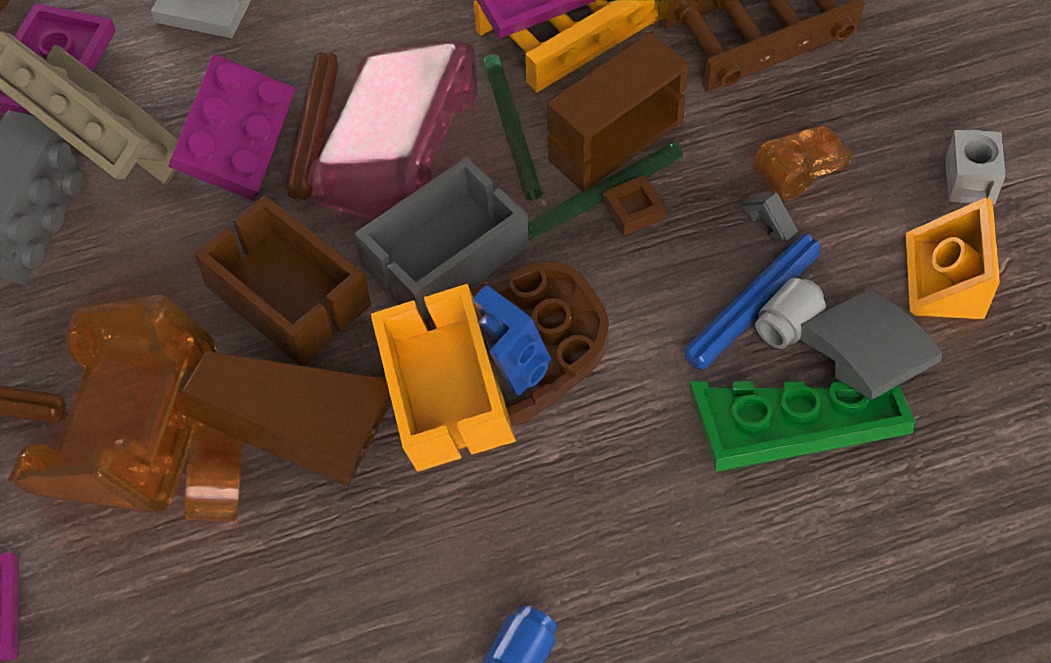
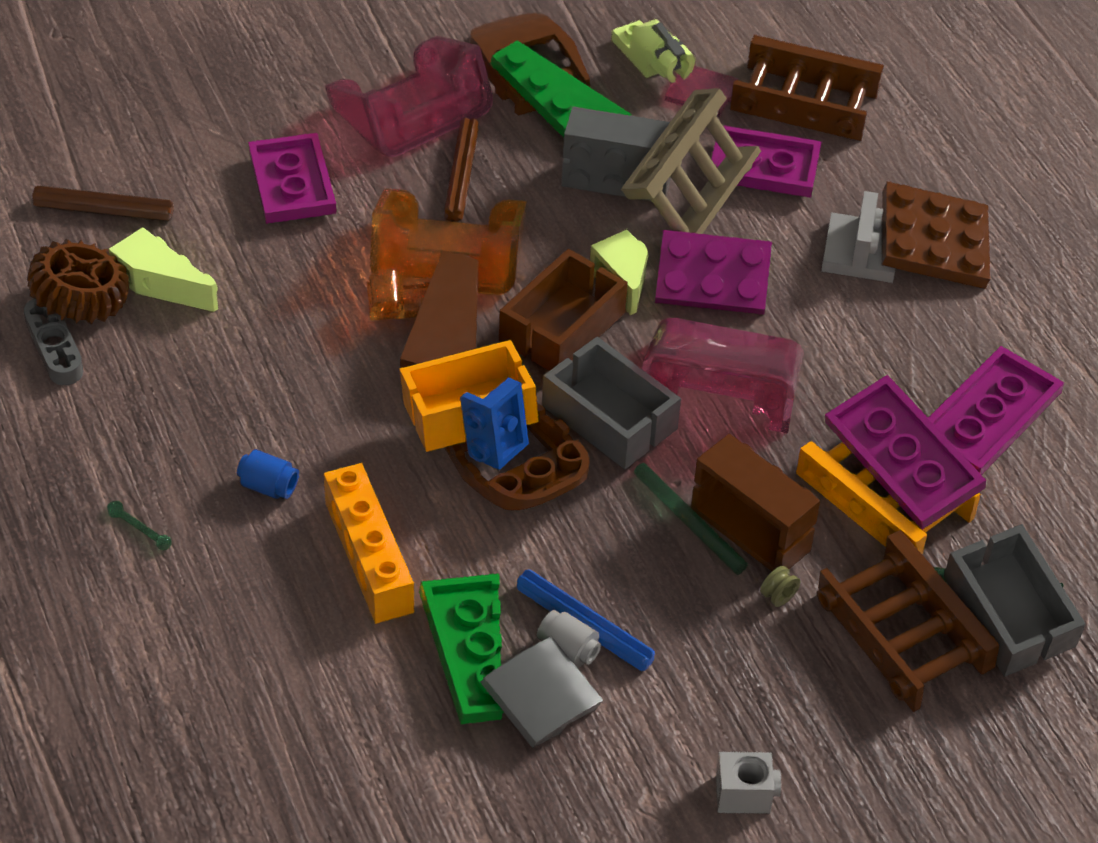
camera: 80 degrees right, 10 degrees down
(201, 212) = (626, 259): none -> yellowish green slope
(312, 124) = (762, 324): reddish brown axle -> none
(512, 128) = (765, 449): clear green bar -> none
(634, 205) = (671, 534): reddish brown plate -> none
(647, 521) = (369, 543): none -> light orange brick
(712, 112) = (780, 586): none -> olive bush
(772, 212) = (672, 629): dark grey tile -> none
(796, 159) = (733, 644): clear orange plate -> none
(954, 263) = (632, 765): light orange slope -> none

